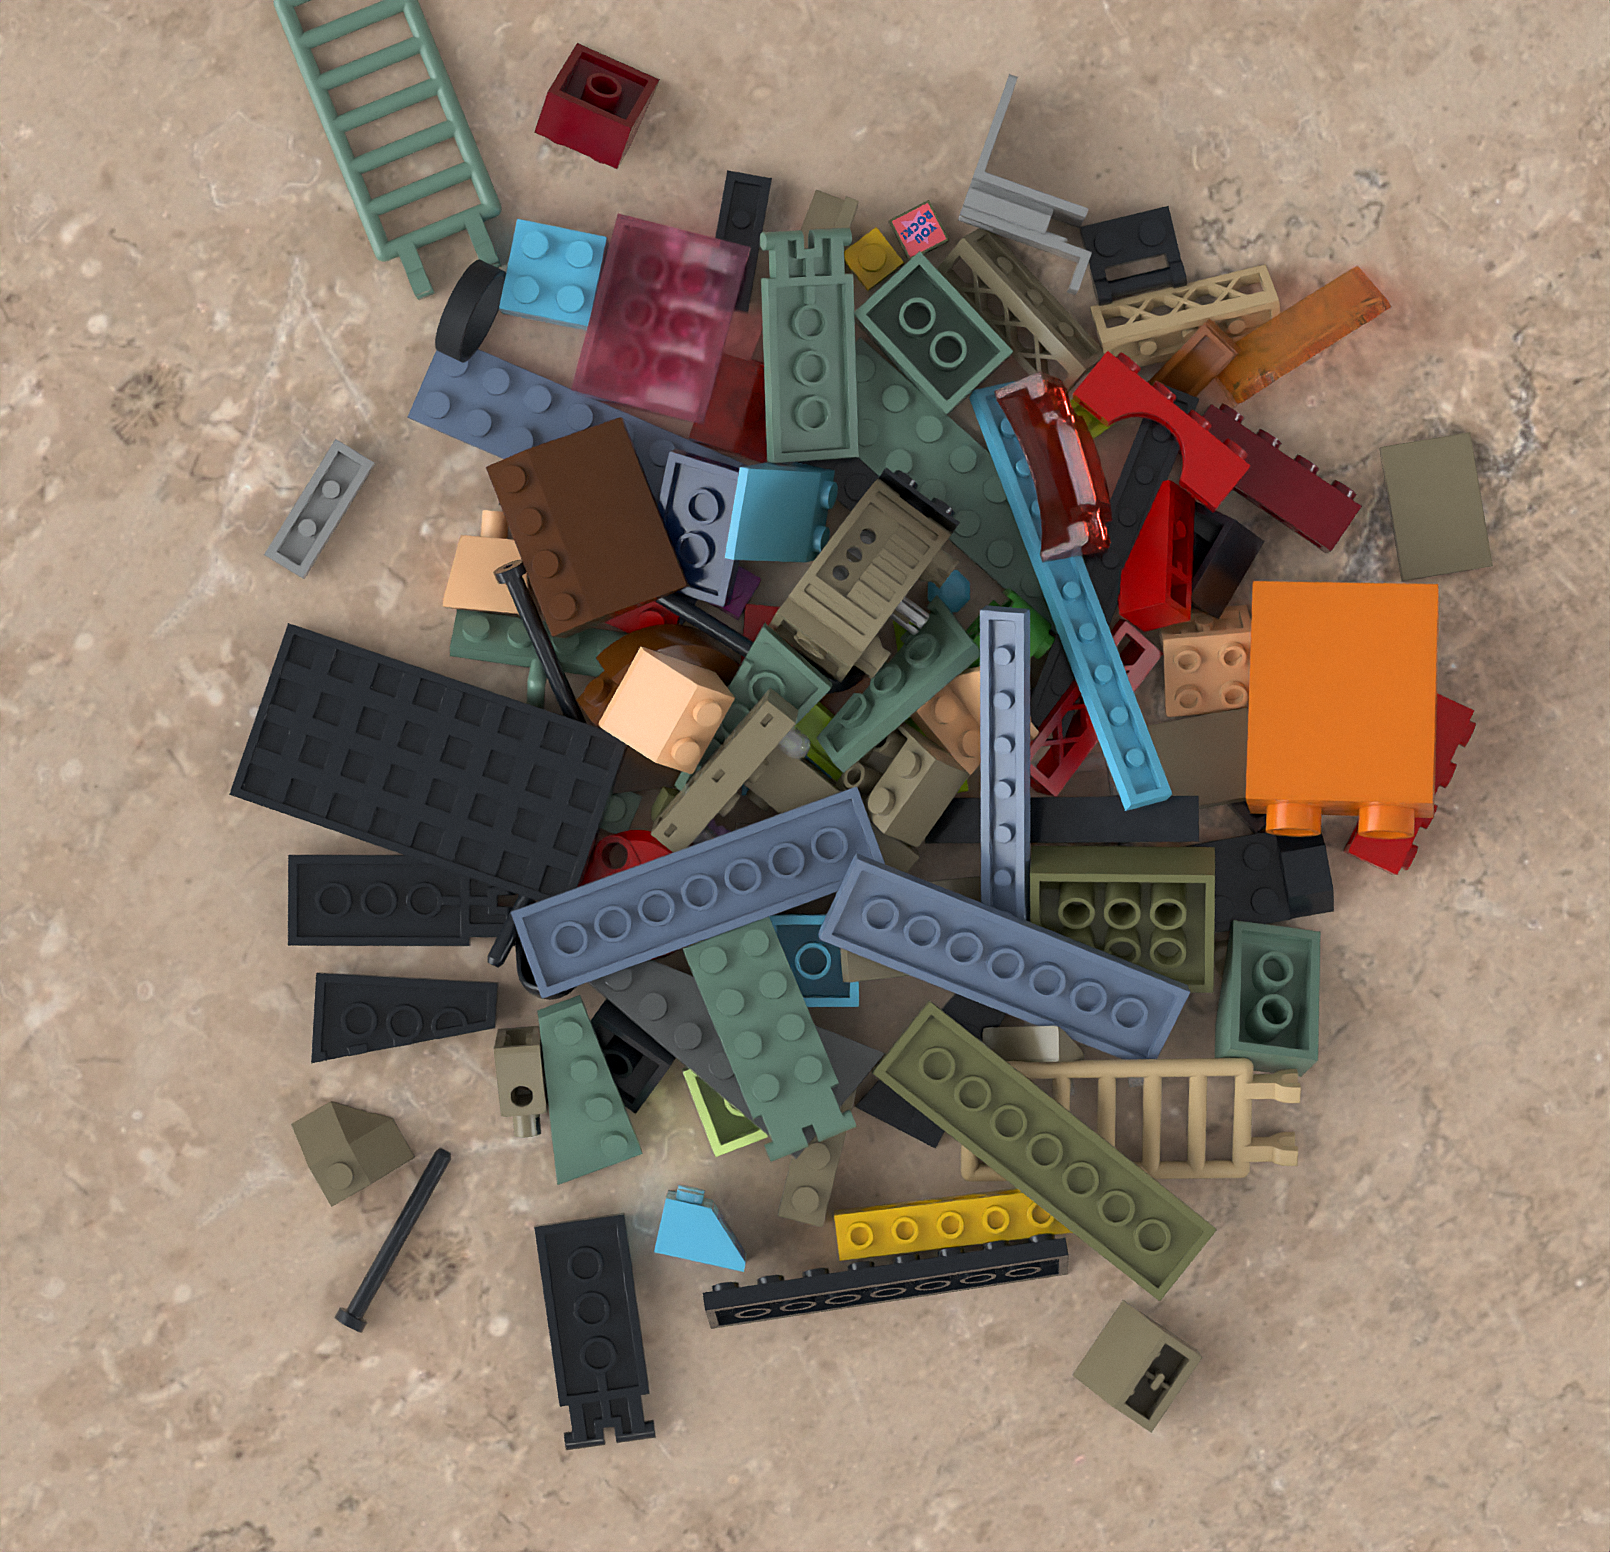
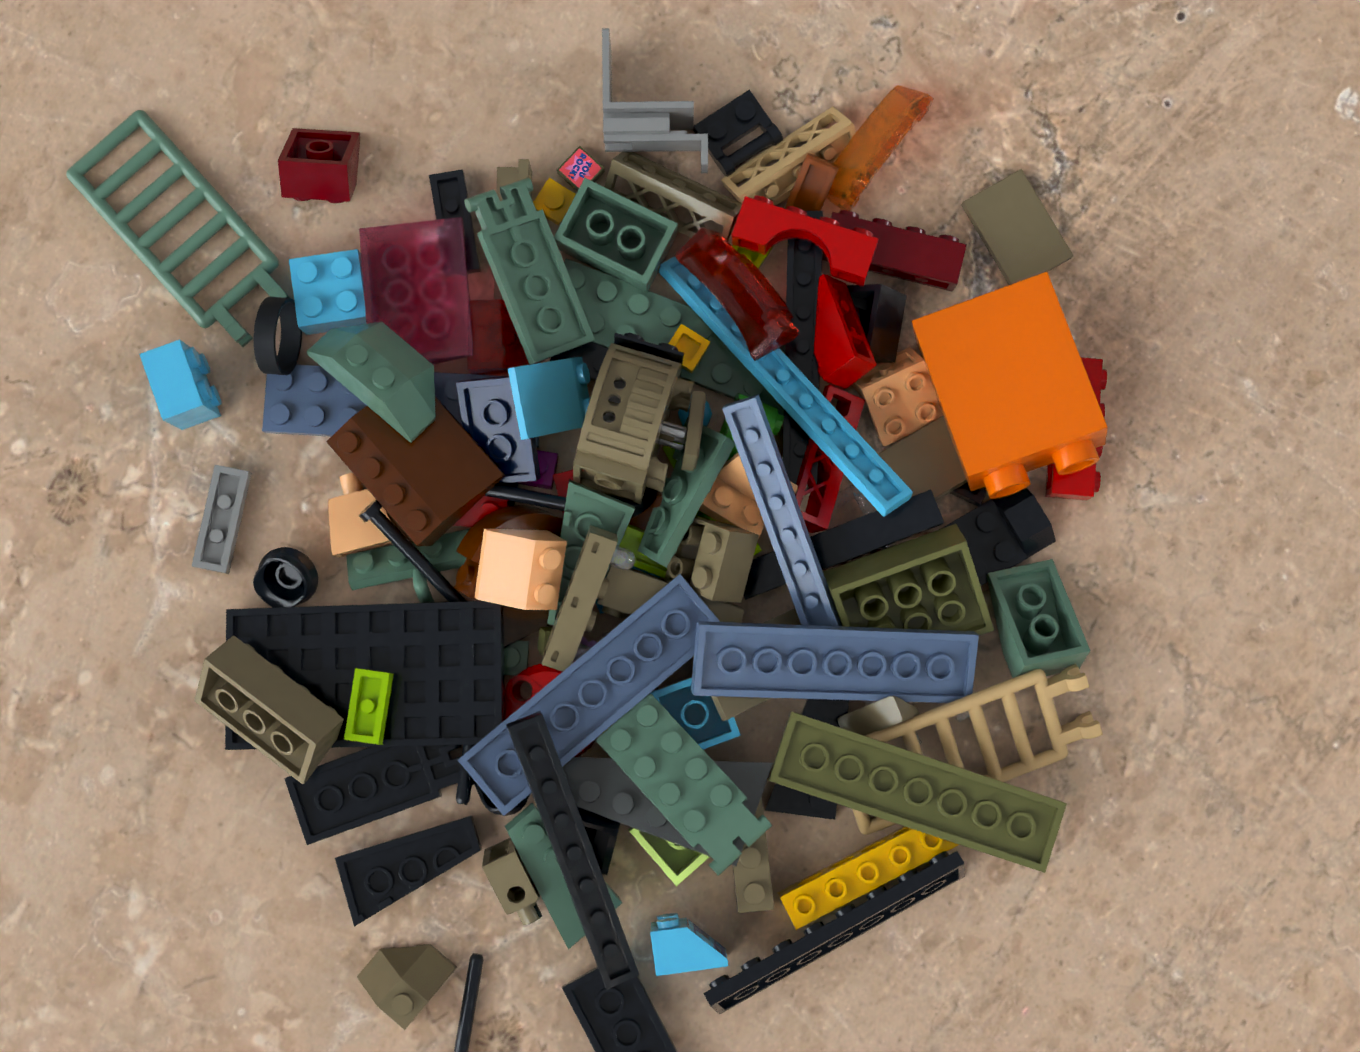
camera: 25 degrees left, 5 degrees down
(300, 765) = (267, 708): none -> dark tan slope
(331, 327) = (181, 384): none -> medium azure brick
(374, 612) = (285, 578): none -> black hat
(424, 808) = (368, 706): none -> lime plate
(582, 407) = (381, 373): none -> sand green wedge
(609, 1068) = (572, 849): none -> black plate
(938, 620) = (694, 431): none -> dark tan tile
(971, 508) = (691, 345): none -> yellow plate
(1137, 1366) = (1044, 926): dark tan slope -> none

